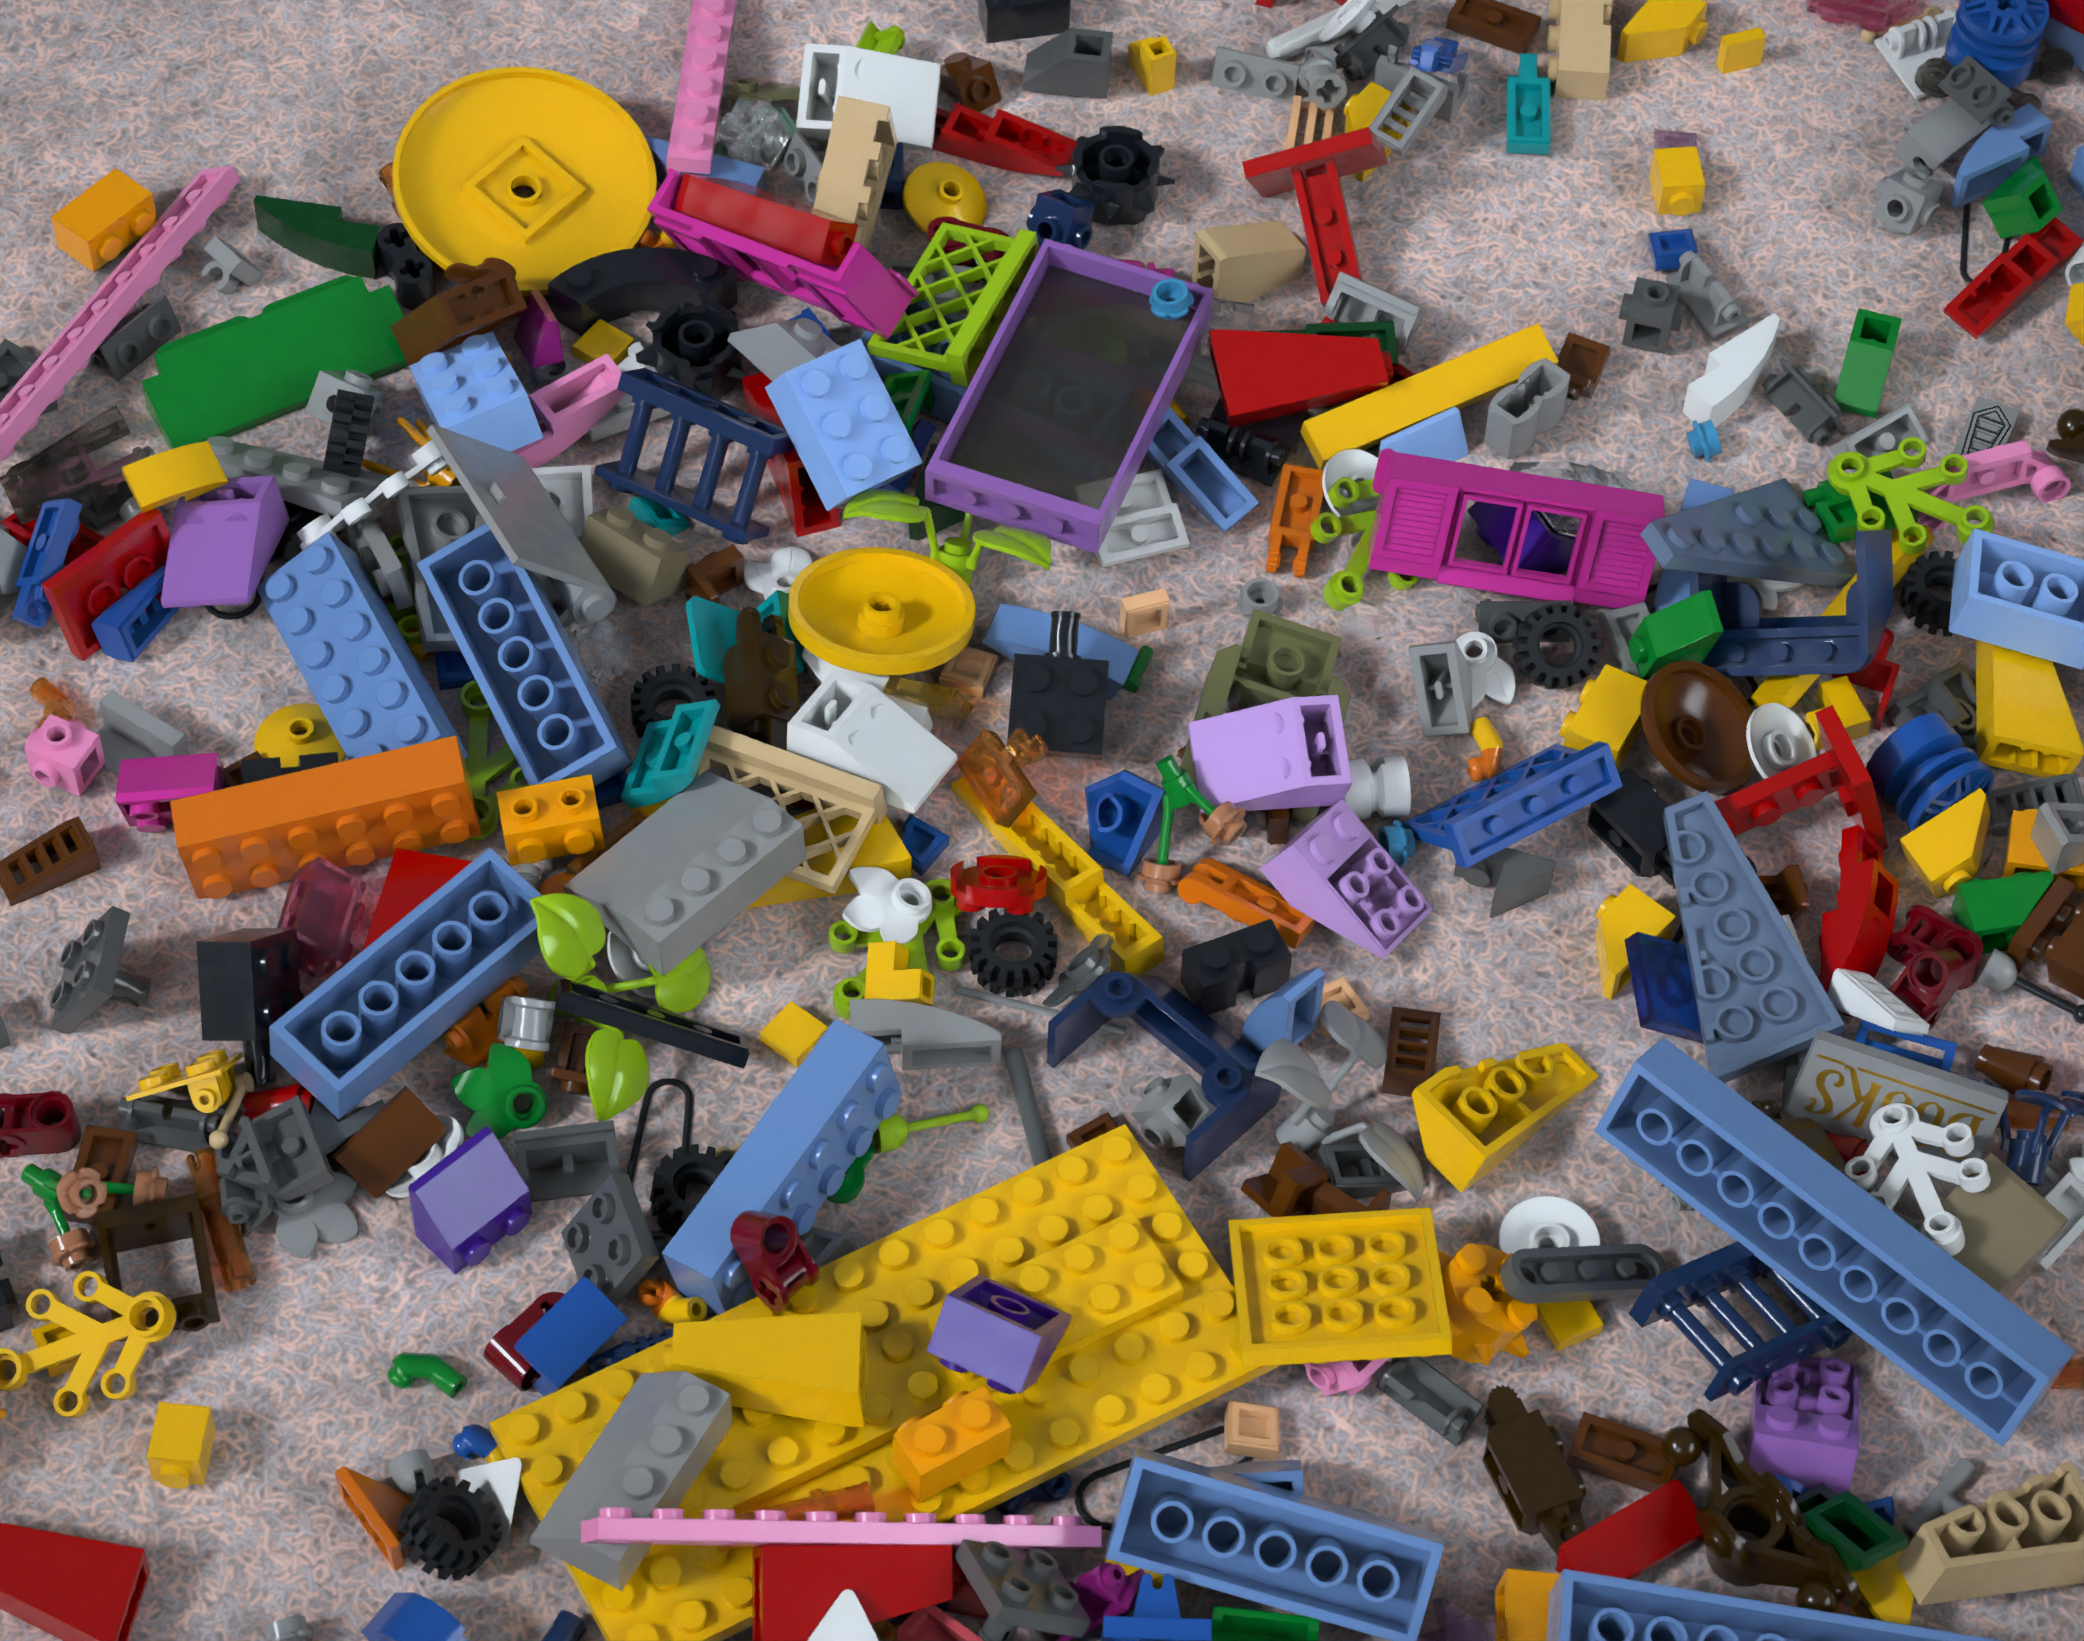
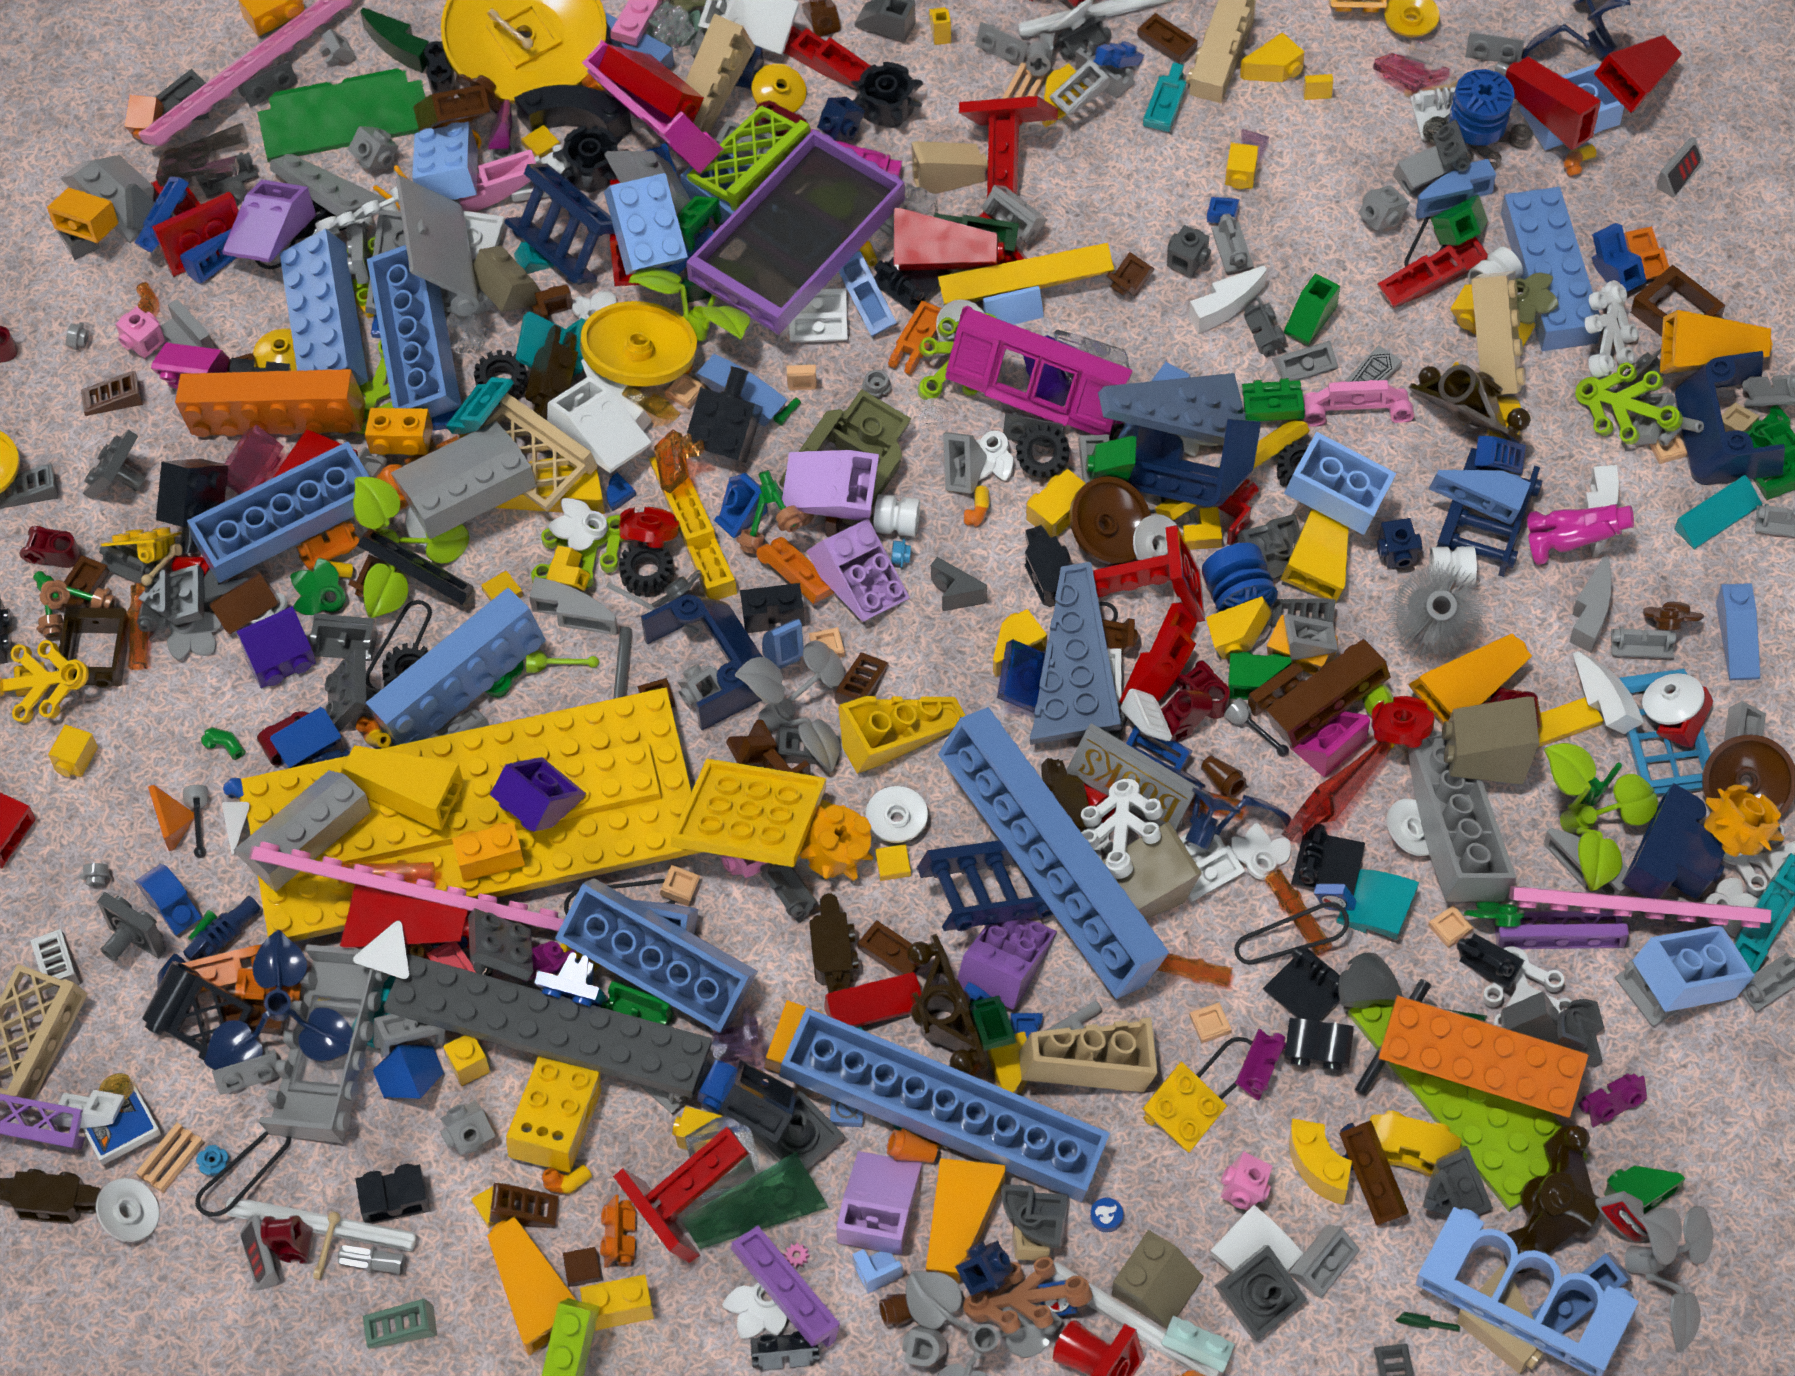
camera: 20 degrees right, 5 degrees up
(174, 474) = (247, 175): yellow slope -> none
(348, 433) = (362, 168): black tyre -> none
(434, 1544) = (190, 844): black tyre -> none
(476, 167) = (527, 42): none -> tan hinge
(525, 1022) = (342, 551): light grey piece -> none
(773, 1261) = (427, 725): dark red piece -> none
(1045, 1492) = (549, 892): dark blue arm -> none
(1170, 299) = (872, 183): dark azure plate -> none
(1518, 802) = (978, 543): blue fence -> none
(1527, 408) = (1084, 295): light grey brick -> none
(1580, 1273) = (898, 836): dark grey plate -> none
(1704, 440) = (1192, 338): dark azure plate -> none
(1905, 492) = (1298, 399): lime plant -> none

